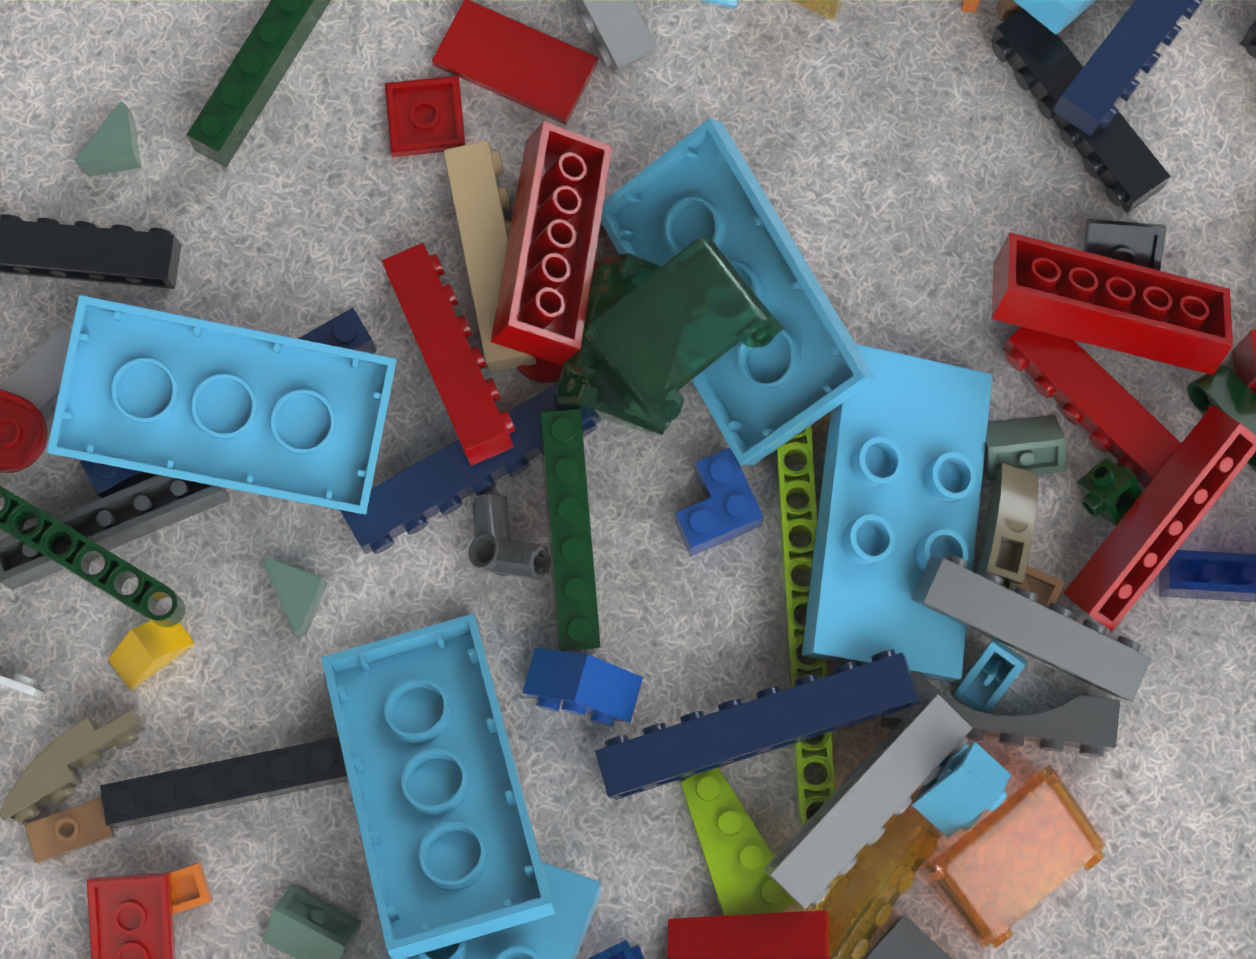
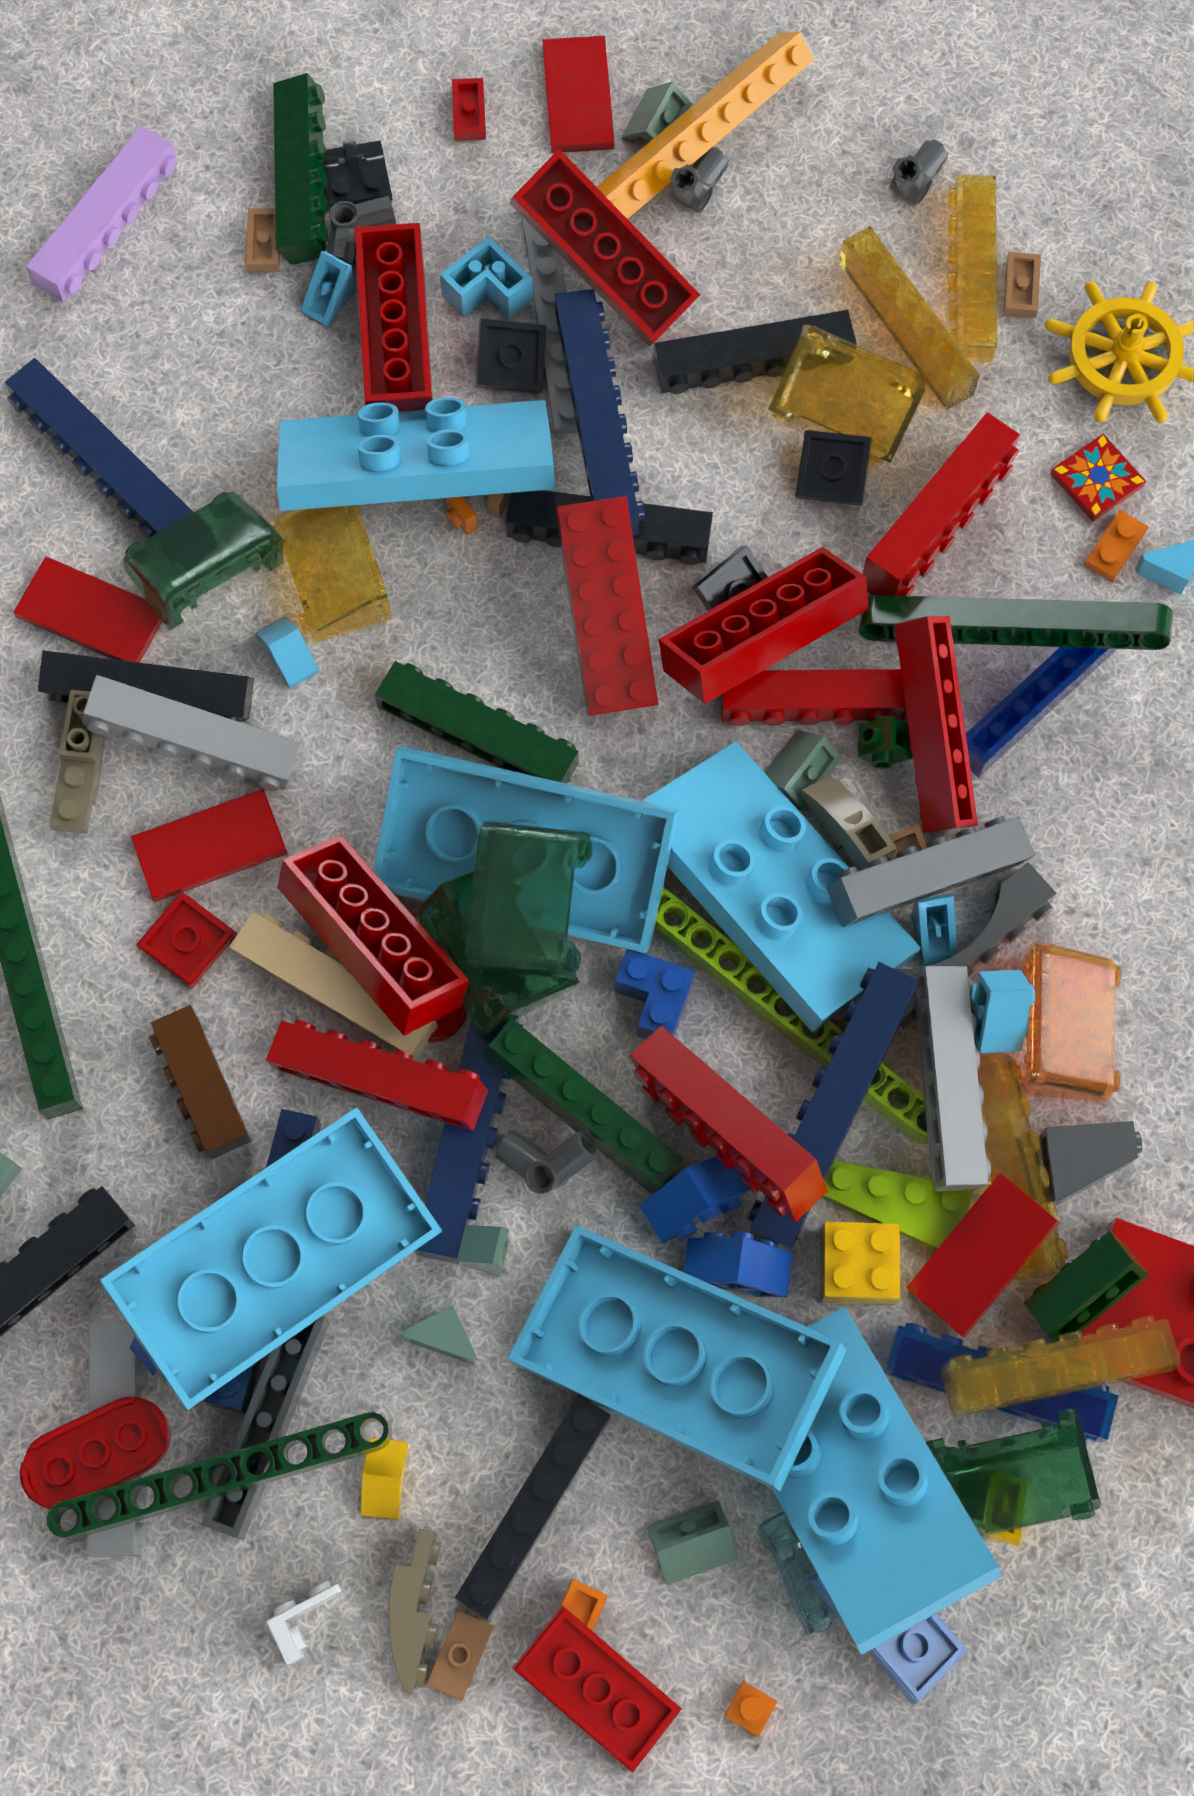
camera: 50 degrees left, 5 degrees down
(320, 229) = (200, 1082): none -> reddish brown brick
(389, 561) = (484, 1248): none -> sand green slope
(559, 768) = (739, 1263): none -> blue brick
(651, 863) = (860, 1263): none -> yellow brick
(653, 656) = (728, 1124): none -> red brick
(805, 168) = (474, 726): none -> dark green brick
(998, 166) = (606, 606): none -> red brick

